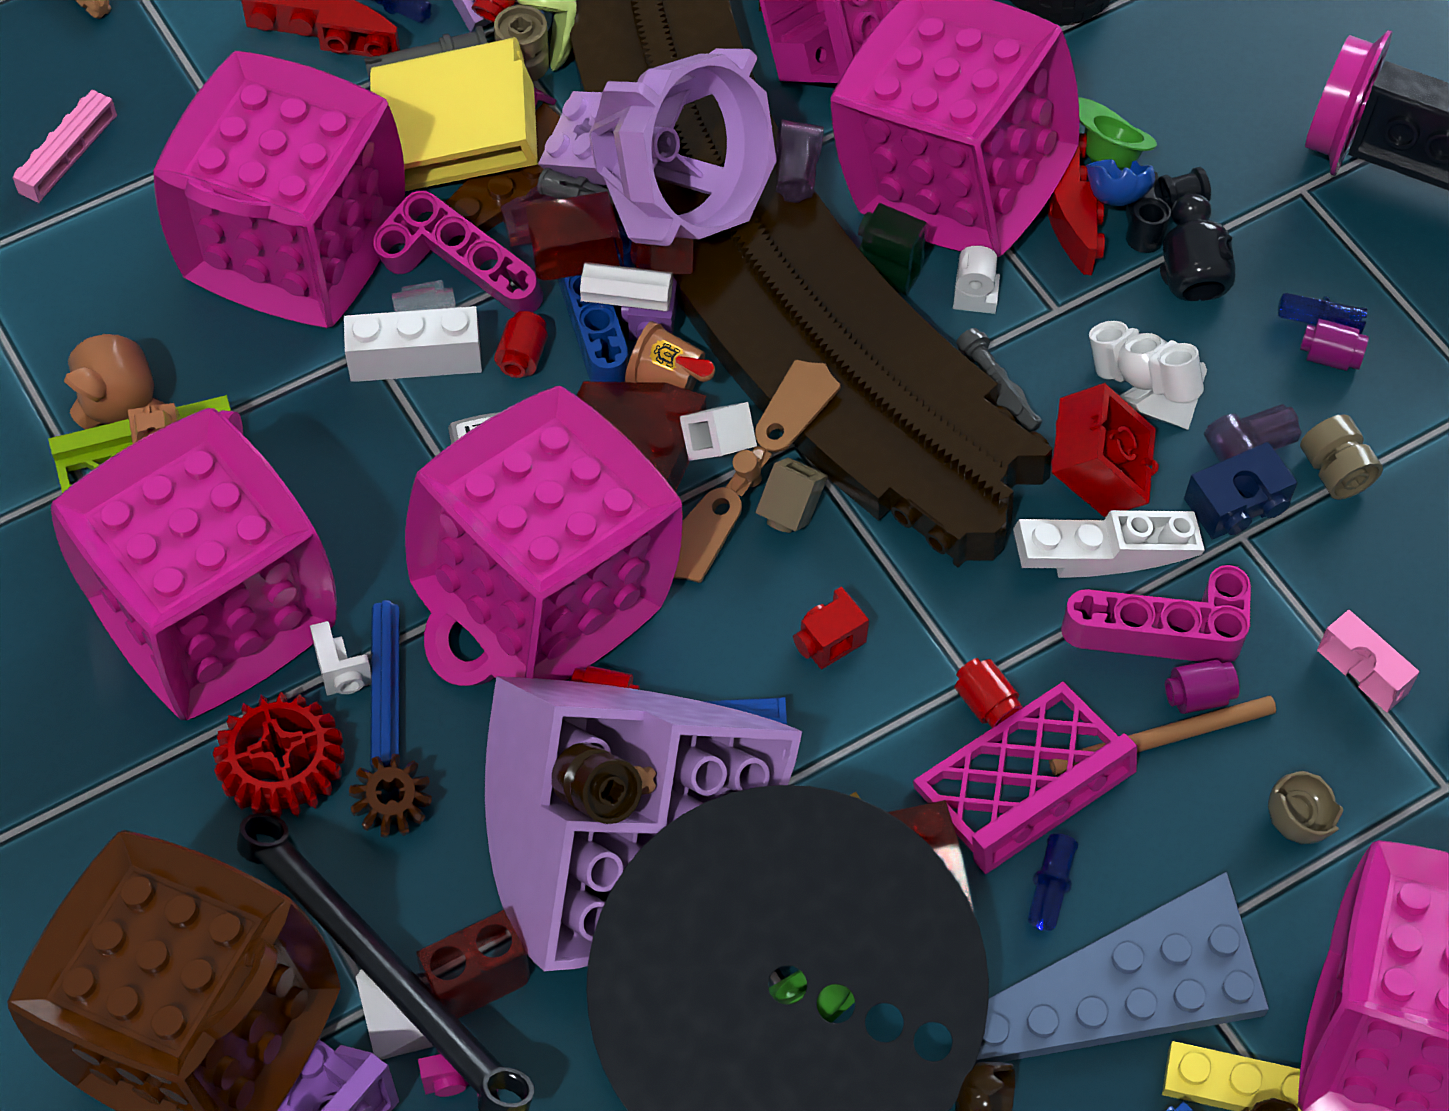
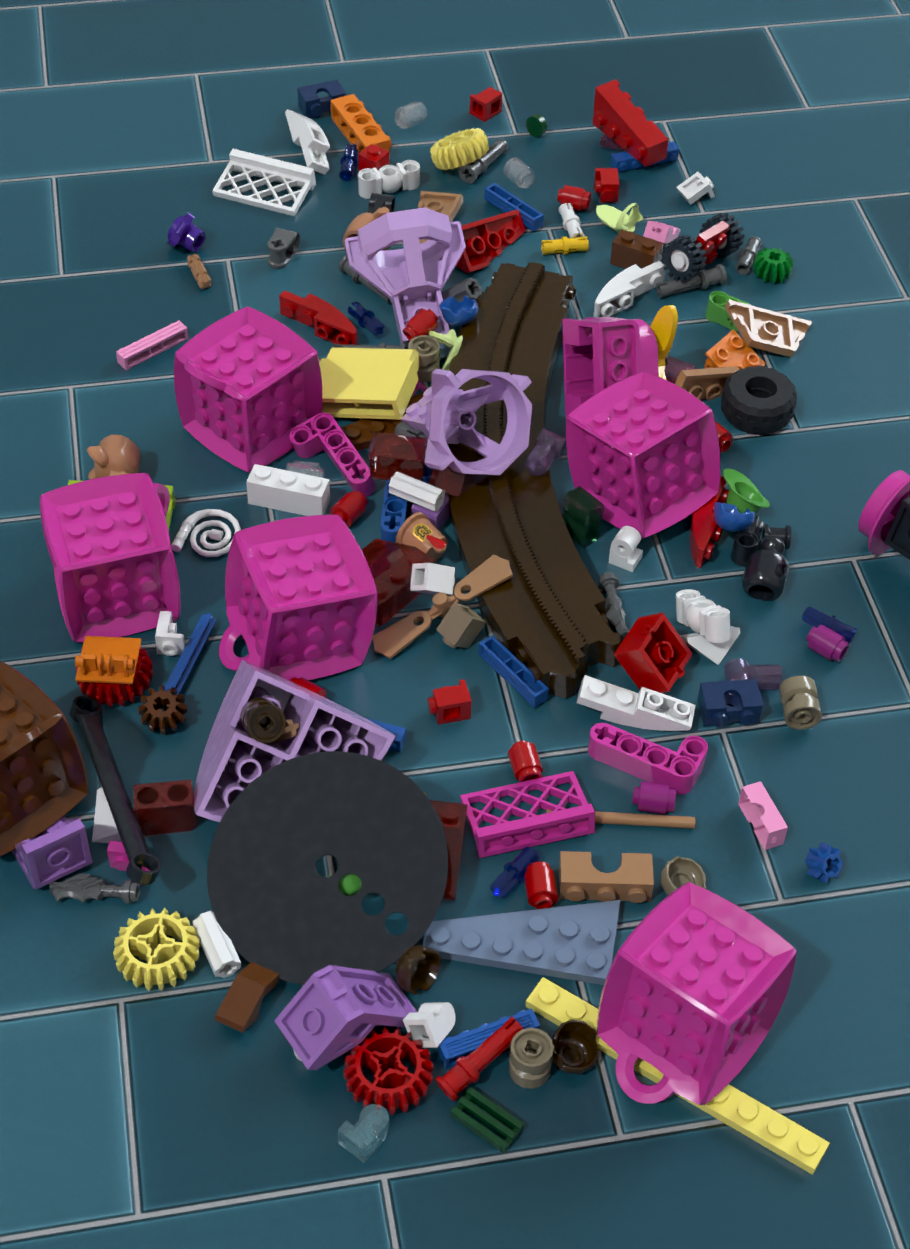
camera: 20 degrees right, 10 degrees down
(269, 743) = (108, 659): none -> orange hinge
(325, 455) = (188, 524): none -> white piece
(899, 543) = (513, 671): none -> blue piece
(1103, 891) = (540, 885): none -> red brick
(1156, 861) = (582, 881): none -> medium nougat arch

